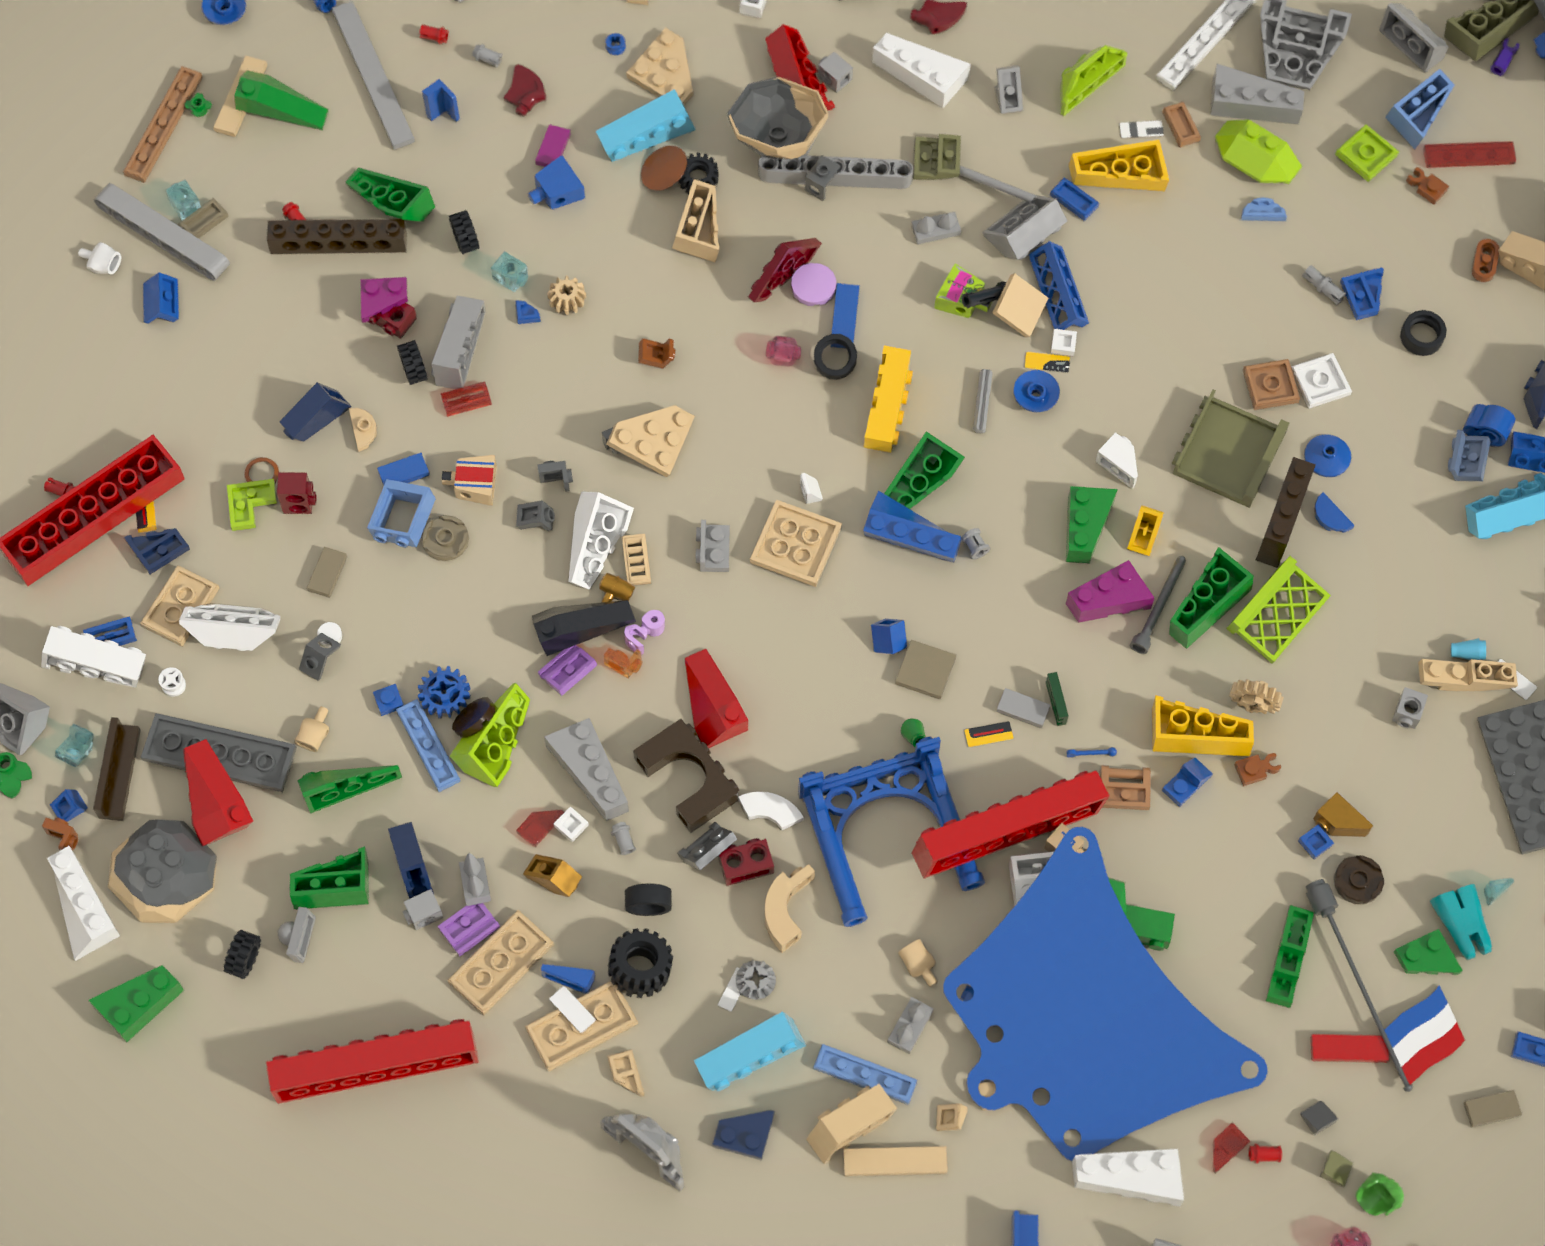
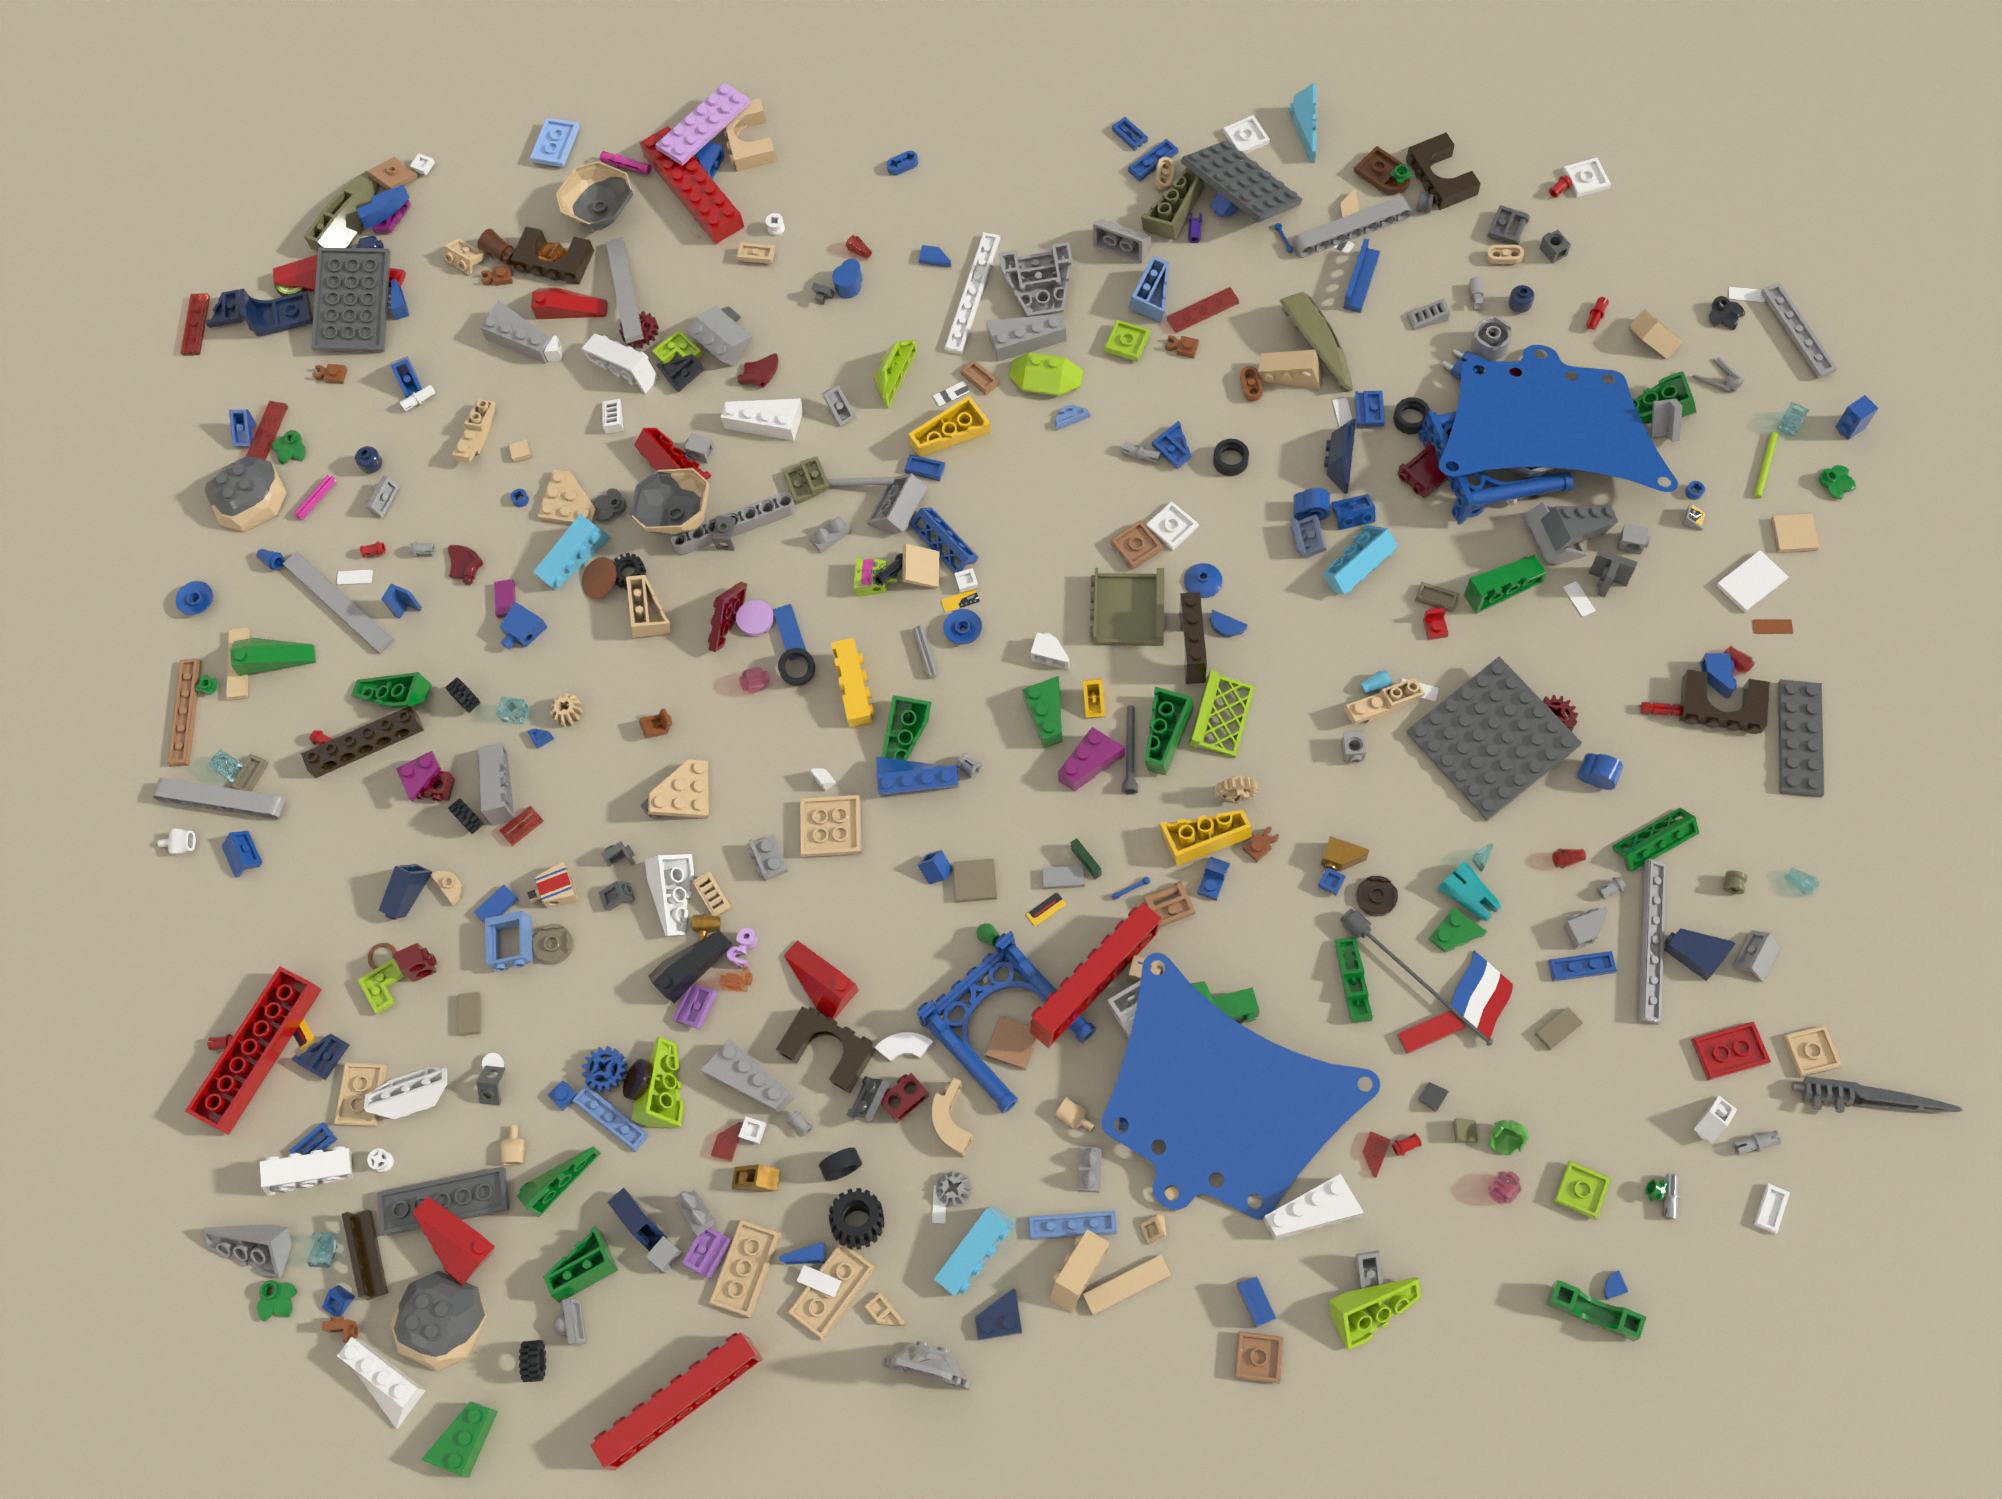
camera: 15 degrees left, 0 degrees up
(402, 55) = (354, 577): none -> white sticker
(709, 93) = (609, 504): none -> dark grey plate
(886, 857) = (1011, 1043): none -> medium nougat tile

